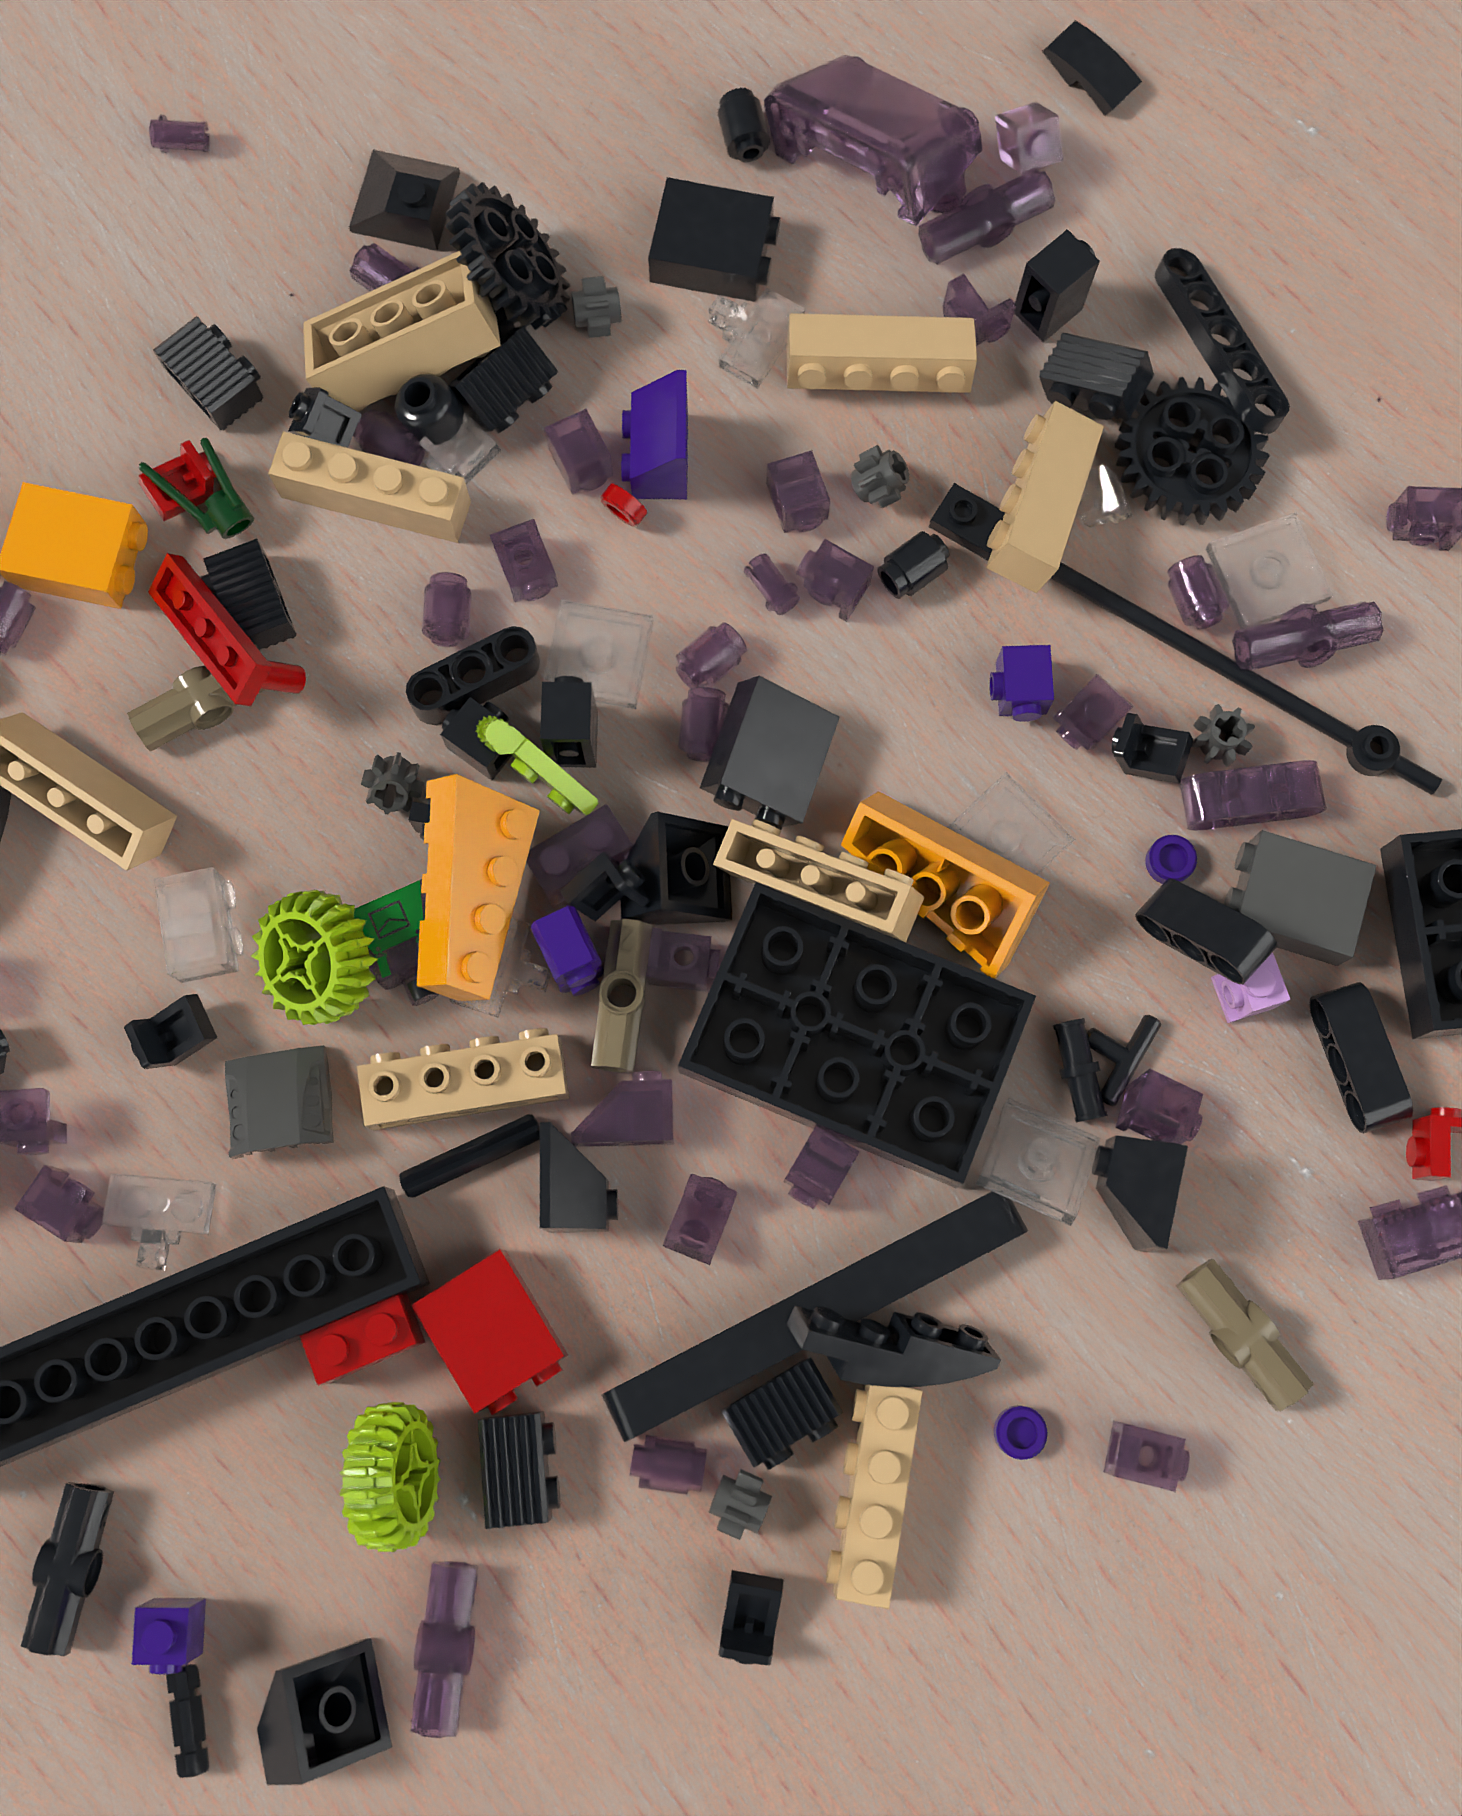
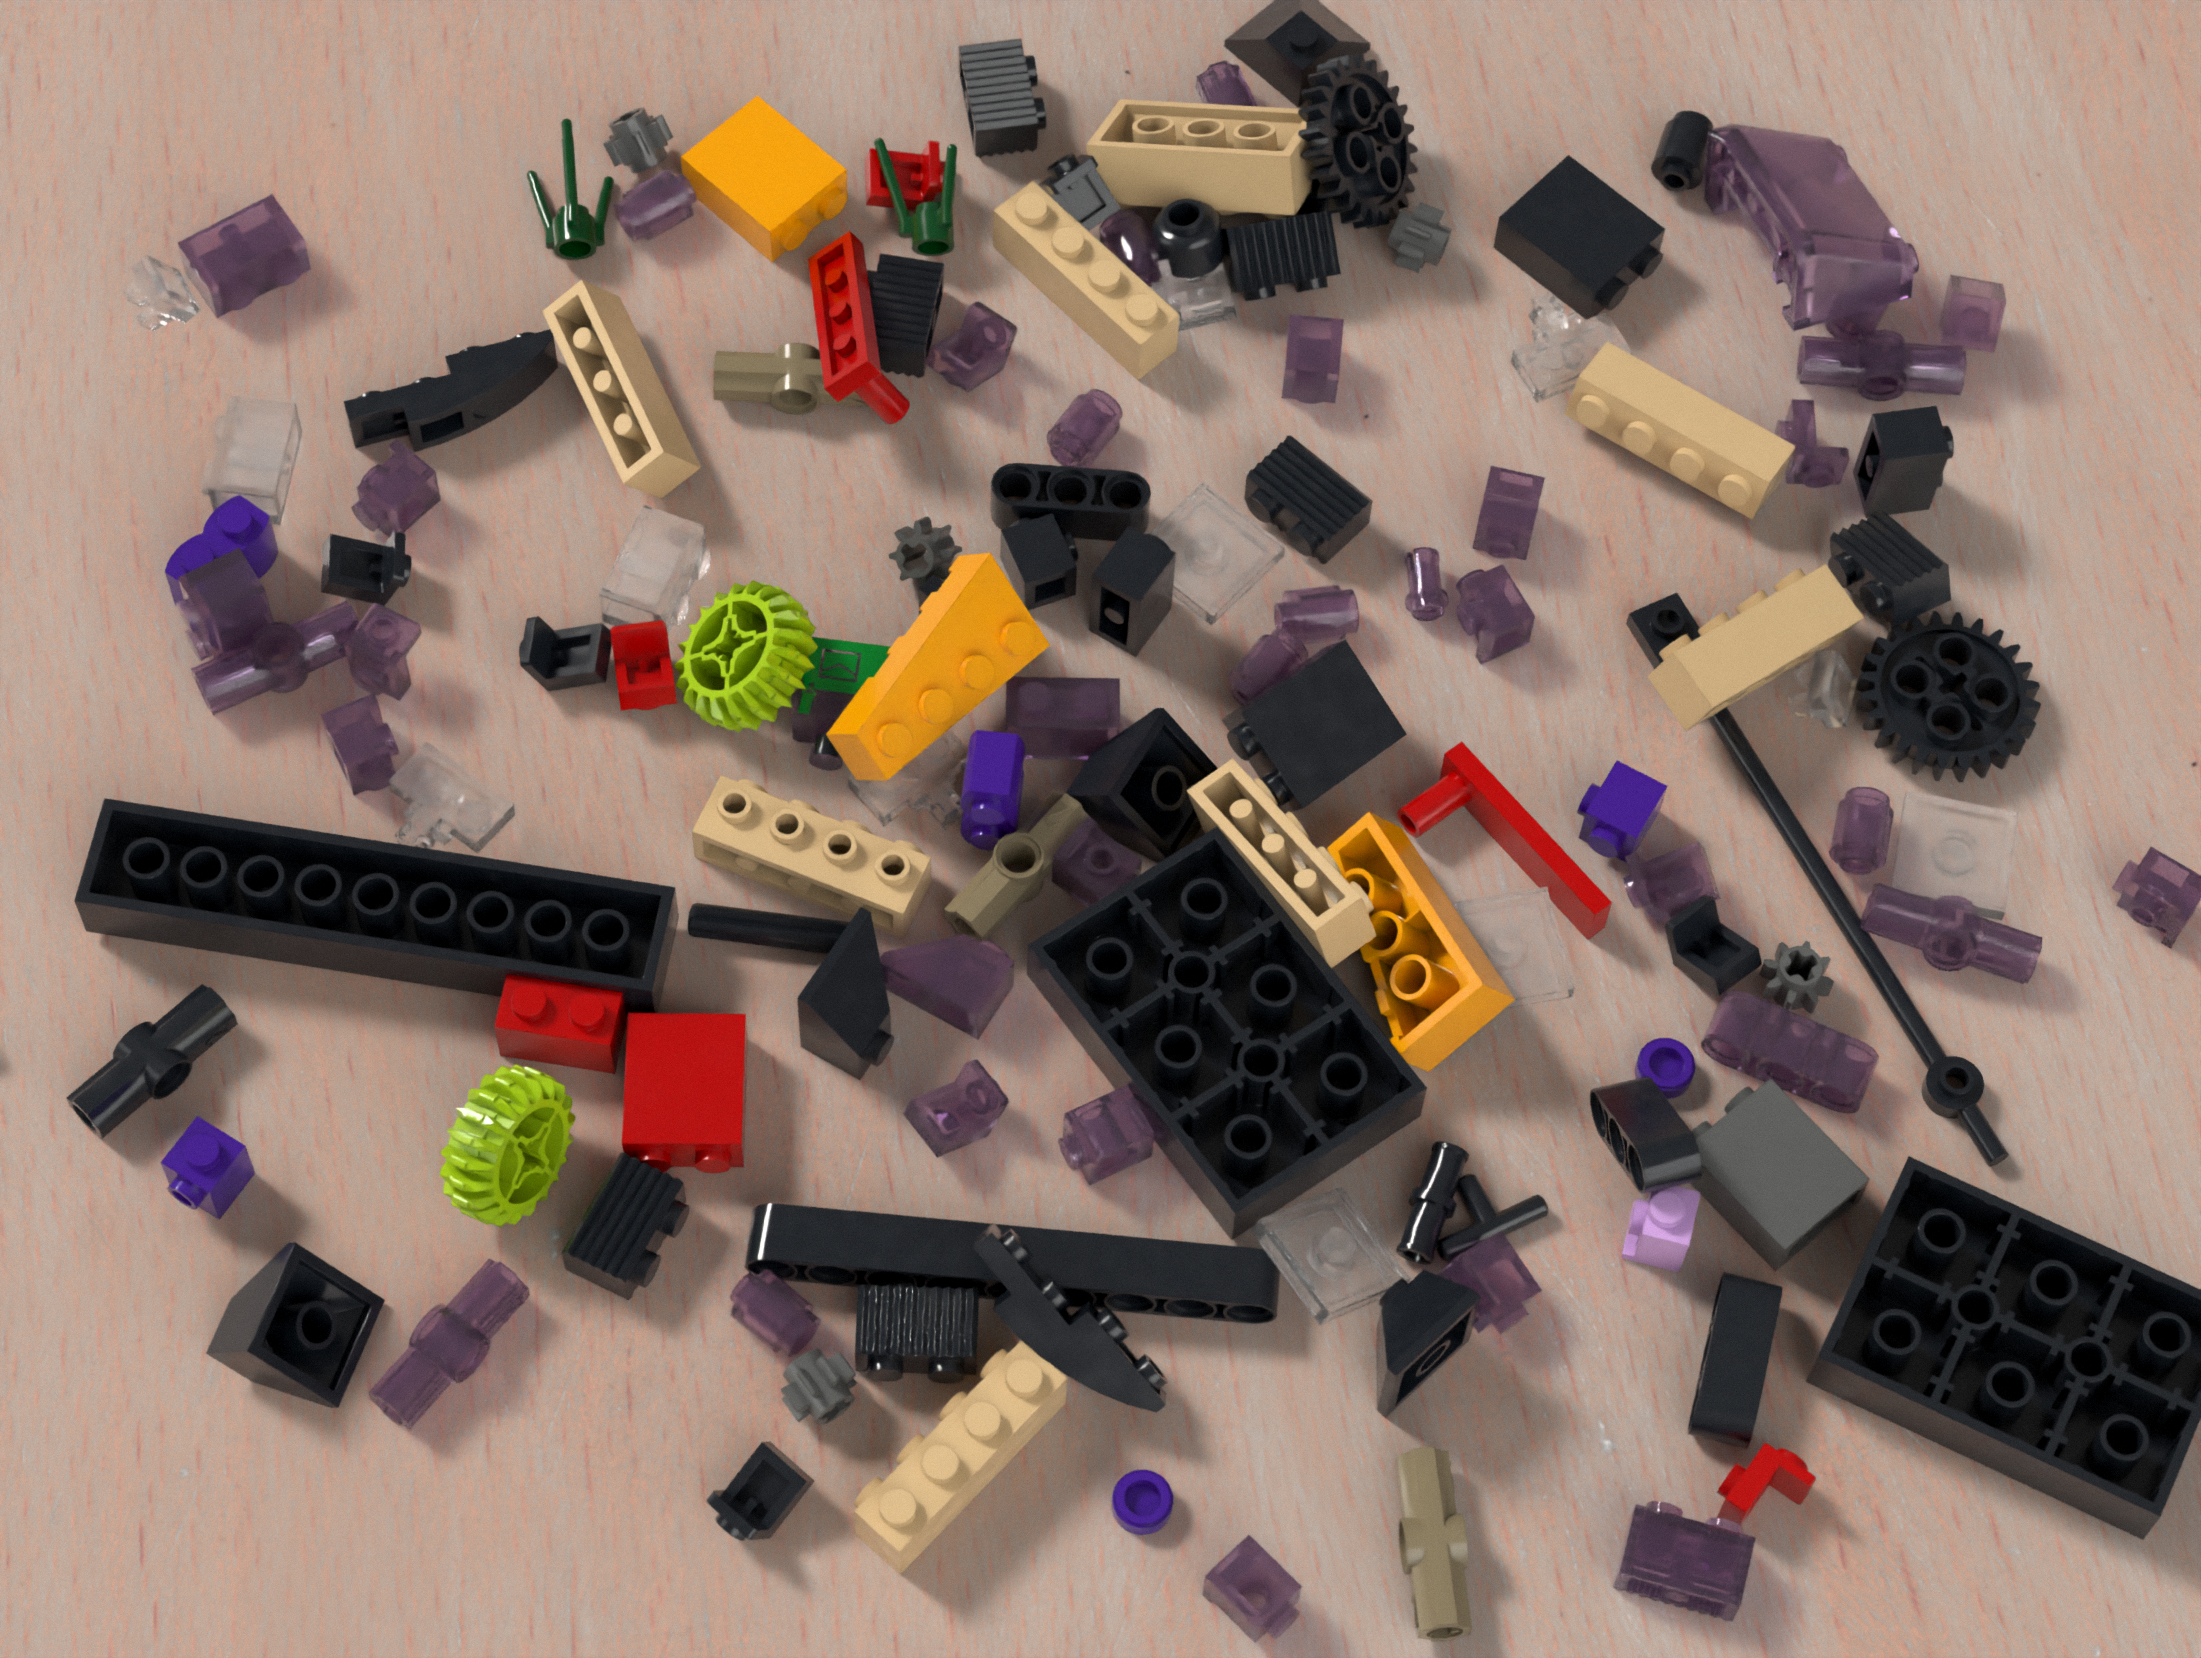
camera: 30 degrees right, 15 degrees down
(188, 1722) = (168, 1262): black axle -> none
(238, 1007) = (643, 665): none -> red bracket
(279, 1100) = (625, 774): dark grey slope -> none
(322, 593) = (975, 350): none -> clear purple bracket
(519, 545) = (1190, 427): clear purple brick -> none
(535, 764) = (1074, 605): lime hinge -> none
(603, 885) = (1065, 748): black bracket -> none
(623, 505) = (1323, 430): red tile -> none
(646, 569) = (1306, 500): none -> black brick
(658, 439) = (1399, 389): dark purple slope -> none
(880, 476) = (1601, 543): dark grey gear -> none
(908, 726) = (1470, 784): none -> red piece
(914, 564) = (1582, 643): black brick -> none
(1099, 69) = (2093, 284): black slope -> none
(1220, 357) = (2037, 623): black beam -> none

